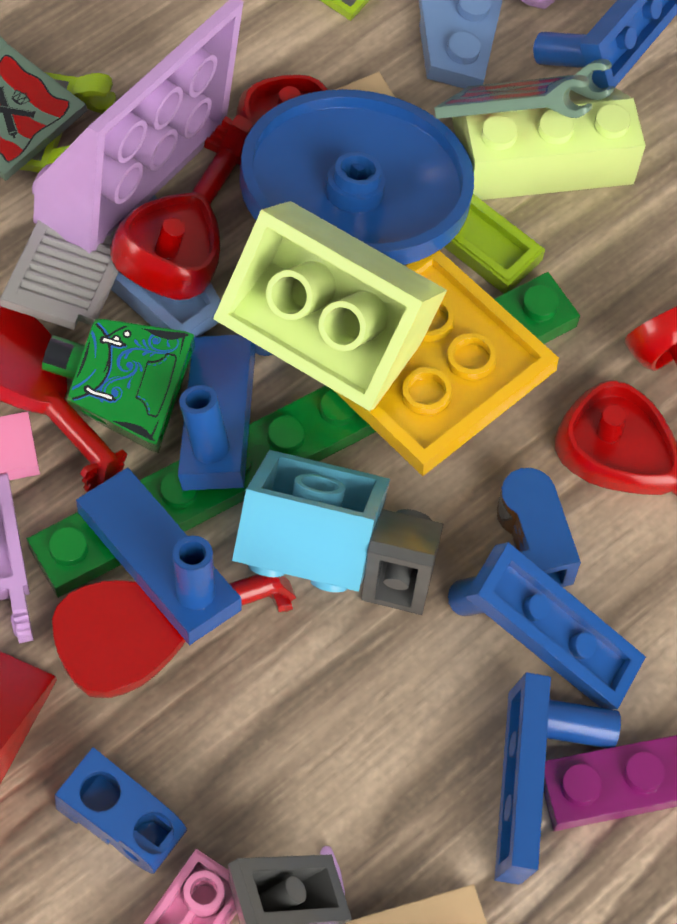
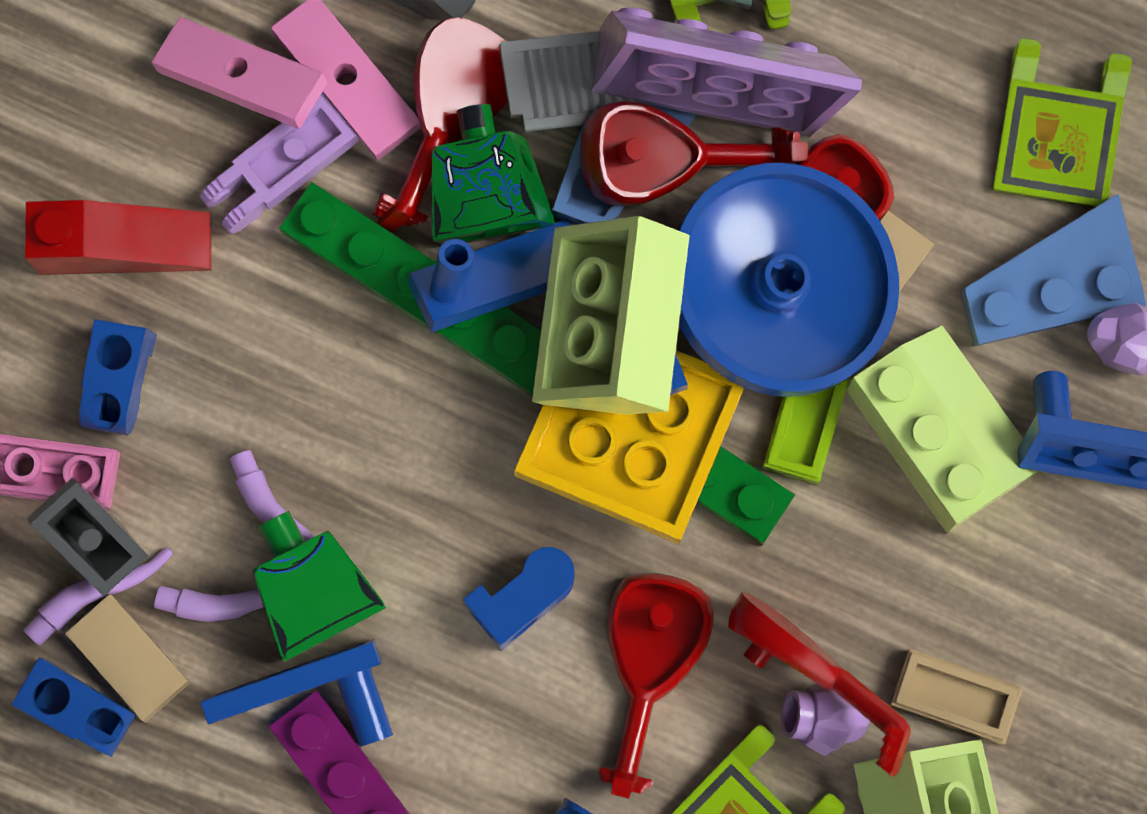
camera: 70 degrees right, 15 degrees up
(120, 640) = (261, 303): red piece -> none
(159, 555) = (333, 294): blue piece -> none
(309, 521) = (422, 402): medium azure brick -> none
(327, 731) = (256, 491): none -> lavender animal
(401, 560) = (437, 492): dark grey slope -> none
(408, 827) = (206, 607): none -> lavender animal
(441, 716) = (309, 587): none -> green torso
(528, 94) = (953, 388): sand green flag -> none
(550, 624) = (430, 645): blue piece -> none

